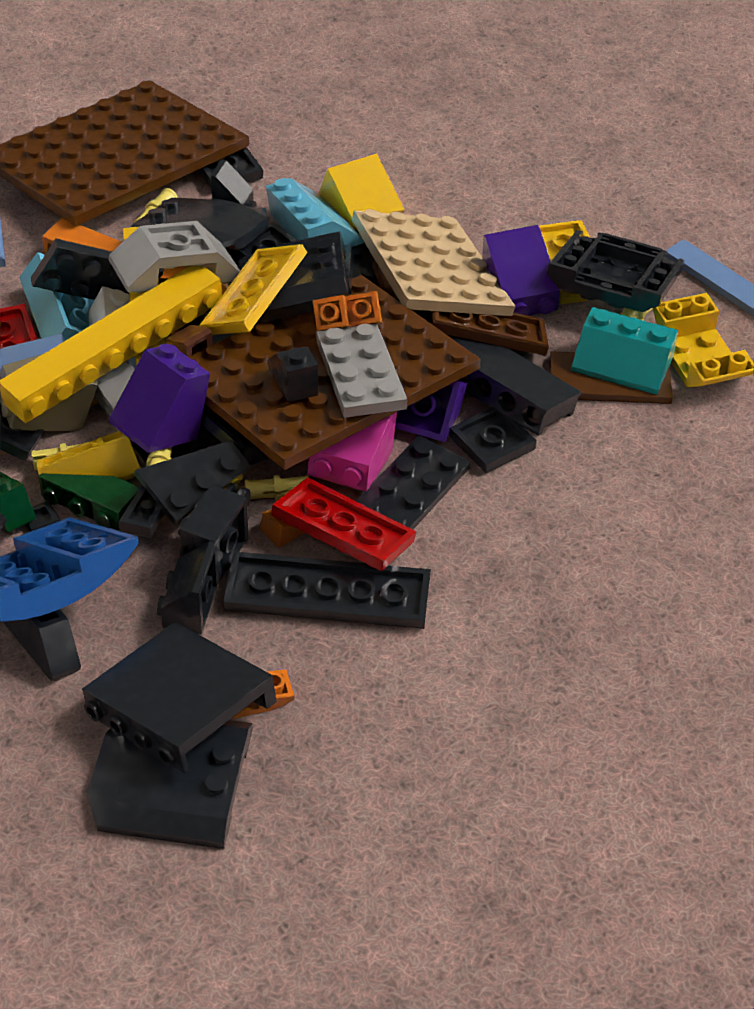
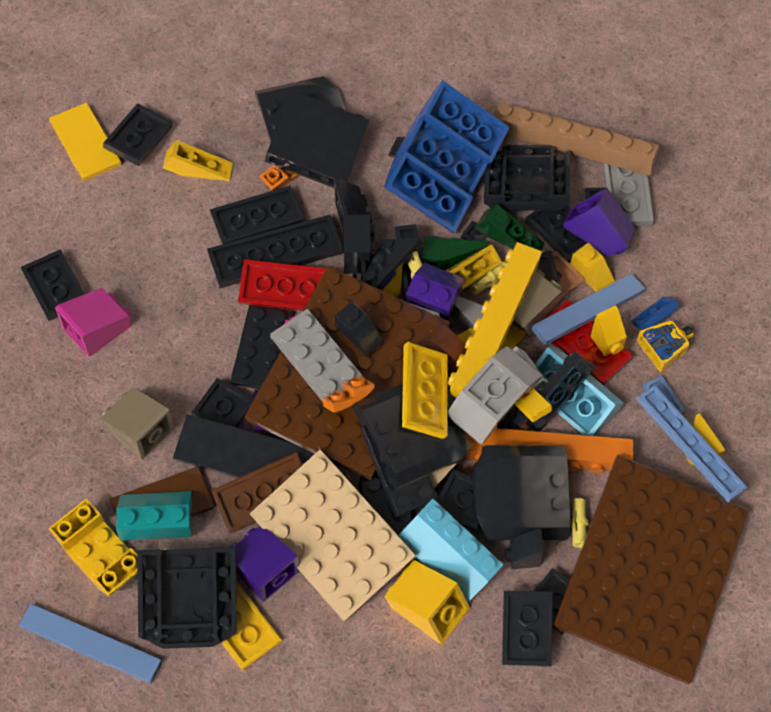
camera: 155 degrees right, 15 degrees up
(274, 148) = (527, 628): none -> black plate
(328, 645) = (256, 215): none -> black plate
(387, 753) = (193, 162): none -> yellow slope
(453, 833) = (137, 134): none -> black plate
(545, 873) = (84, 141): none -> yellow tile
(609, 443) = (138, 422): none -> dark tan slope
(627, 577) = (93, 319): none -> dark pink slope
(666, 660) = (52, 282): none -> black plate

